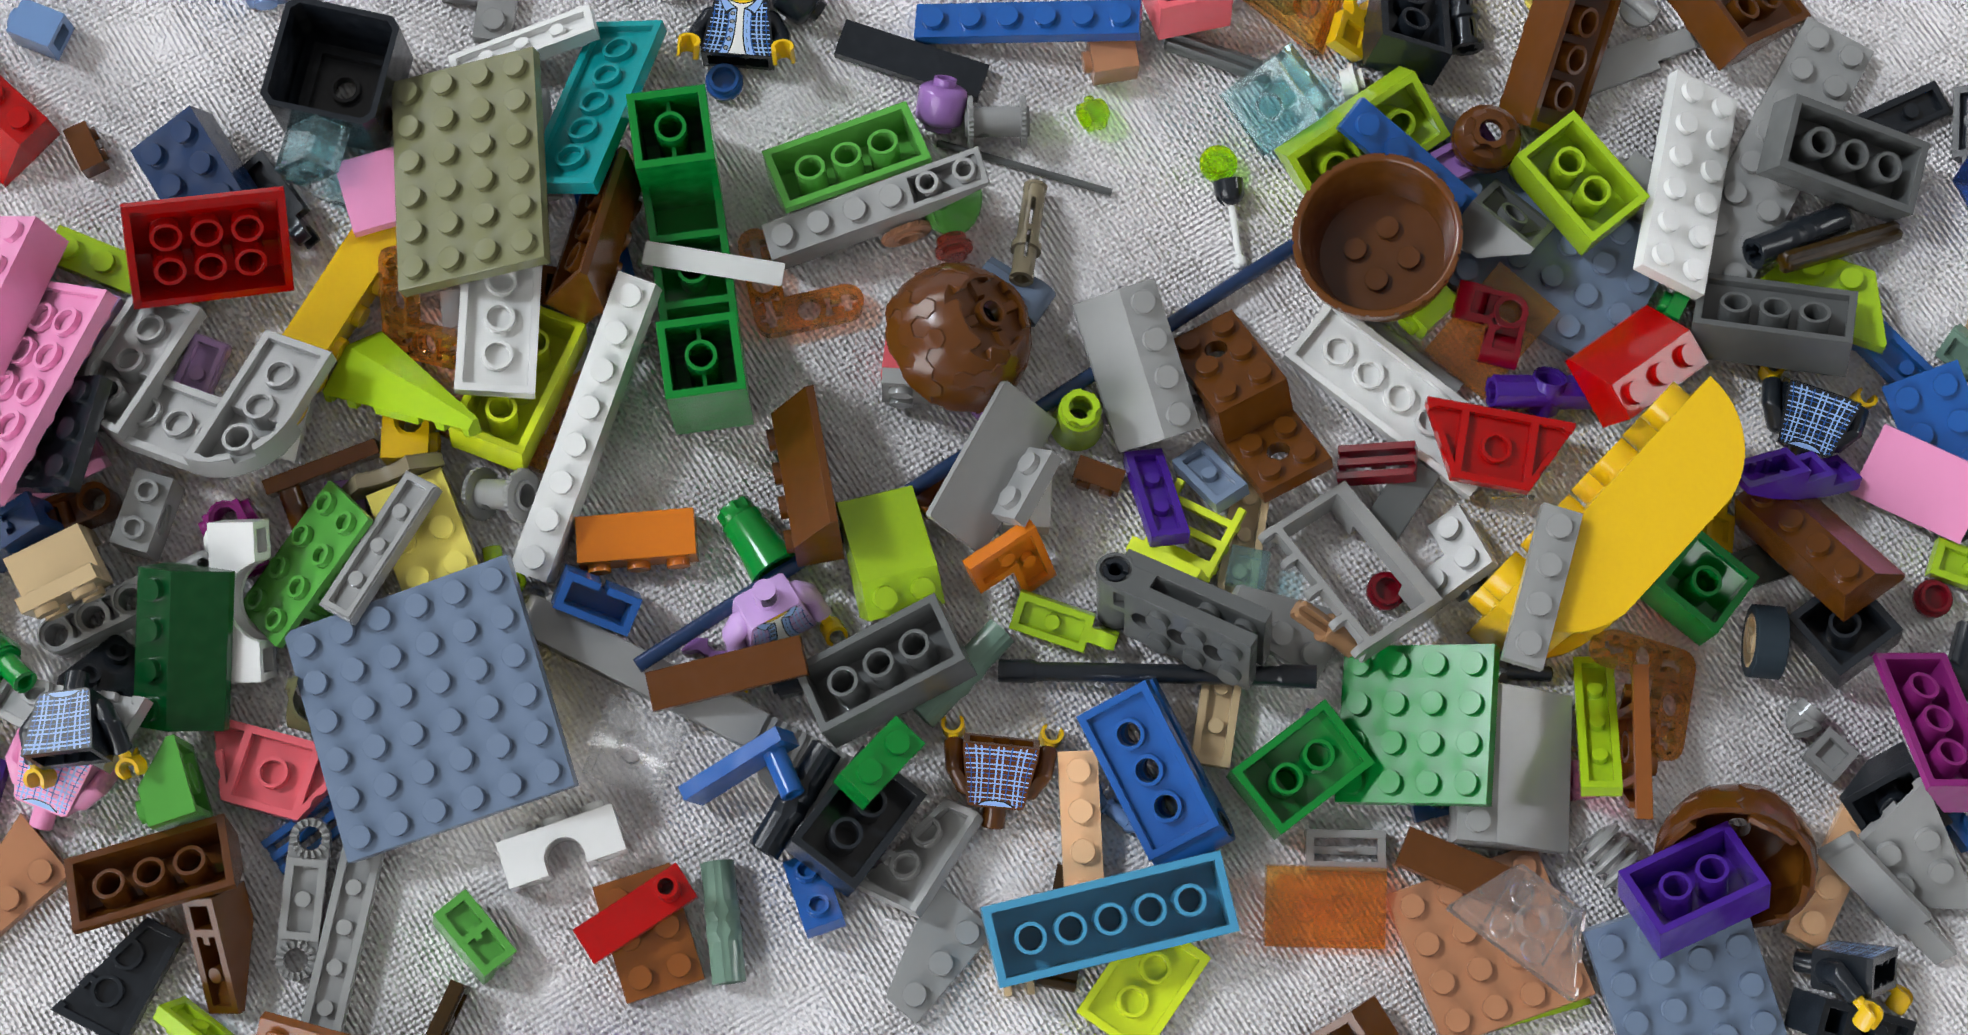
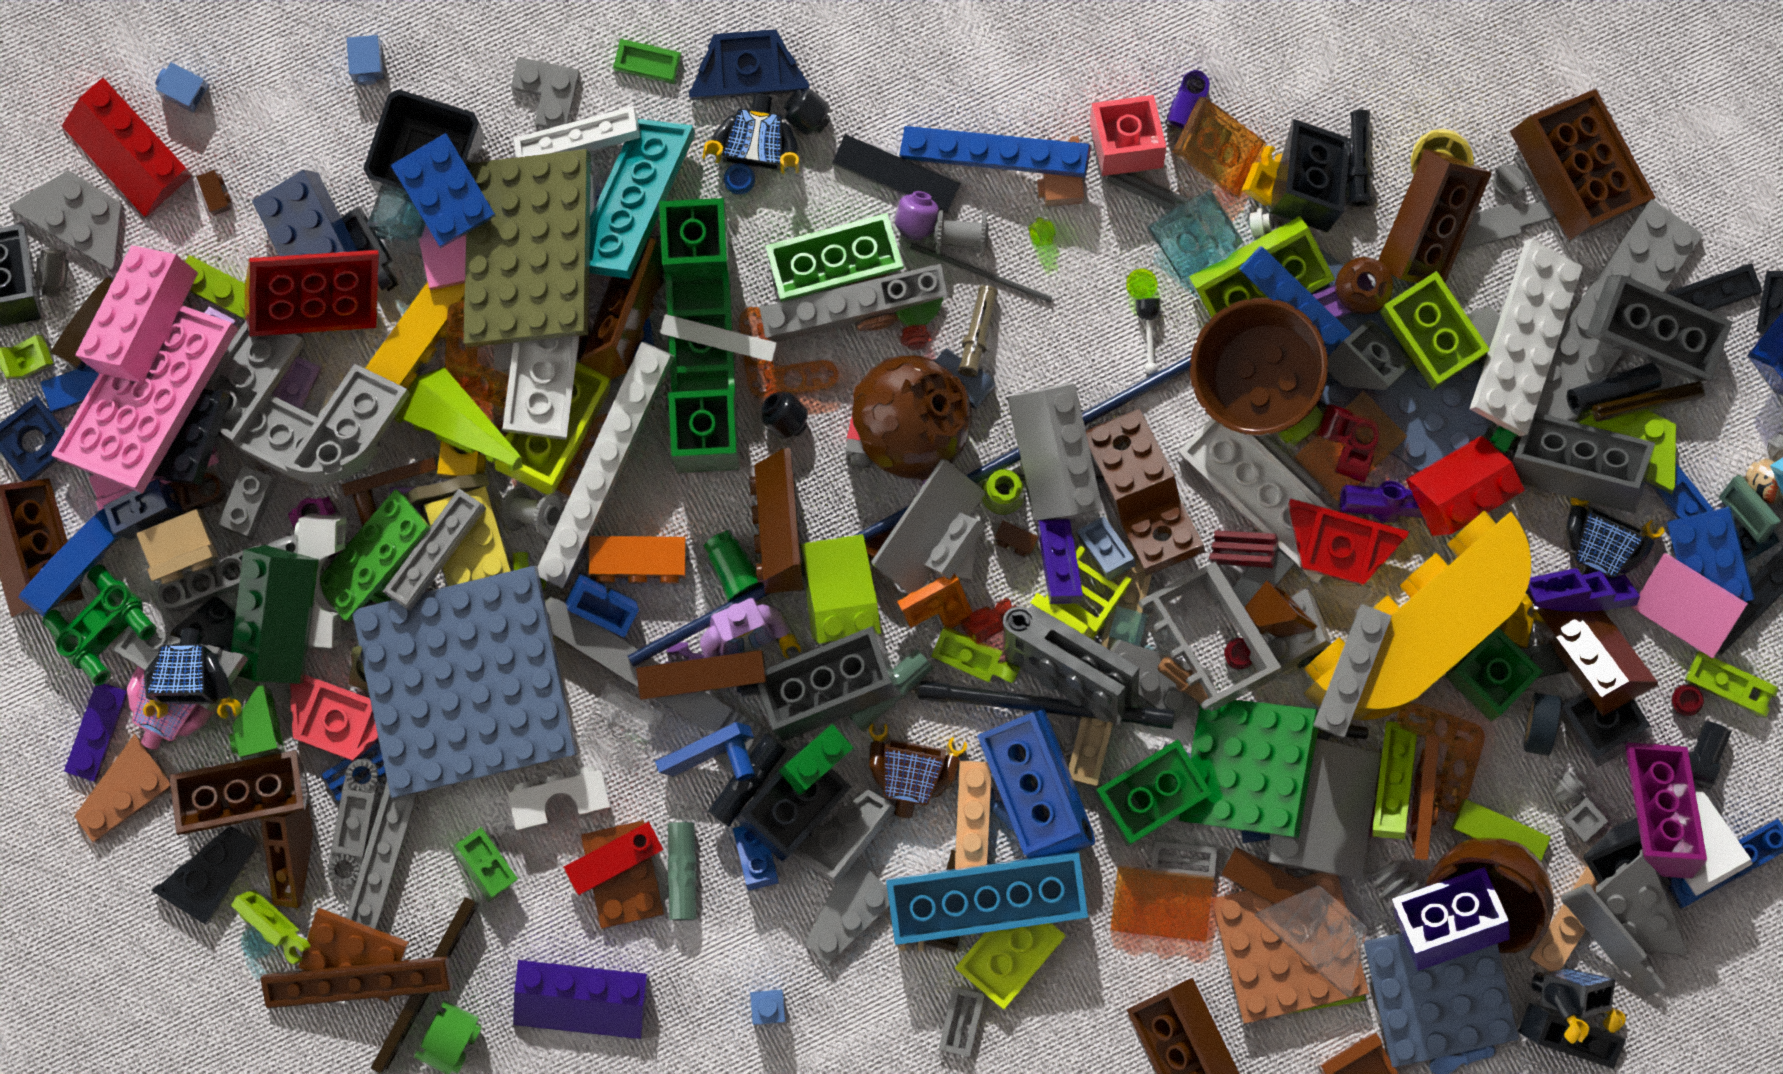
camera: 10 degrees right, 5 degrees up
(360, 109) = (443, 190): none -> blue plate
(802, 352) = (784, 415): none -> black head
(1071, 579) = (986, 622): none -> clear red plate
(1429, 536) = (1277, 613): none -> reddish brown slope
(1702, 767) = (1484, 823): none -> lime tile

